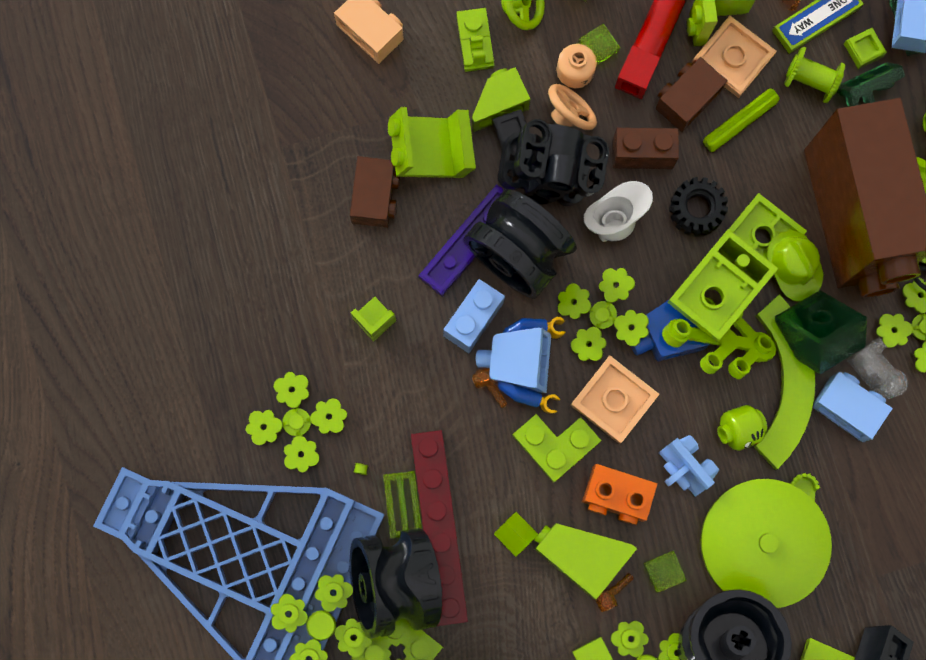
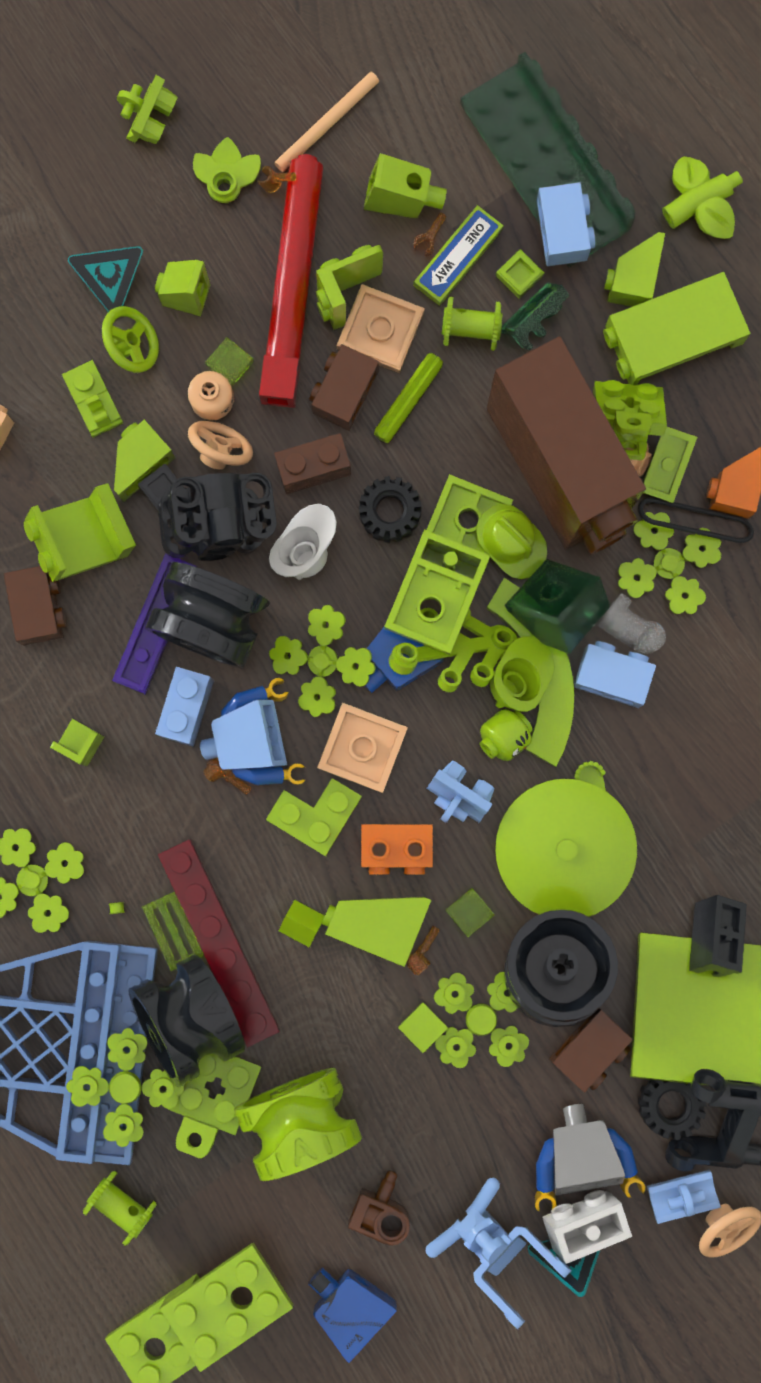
camera: 15 degrees left, 5 degrees up
(772, 380) = (522, 674): none -> lime piece

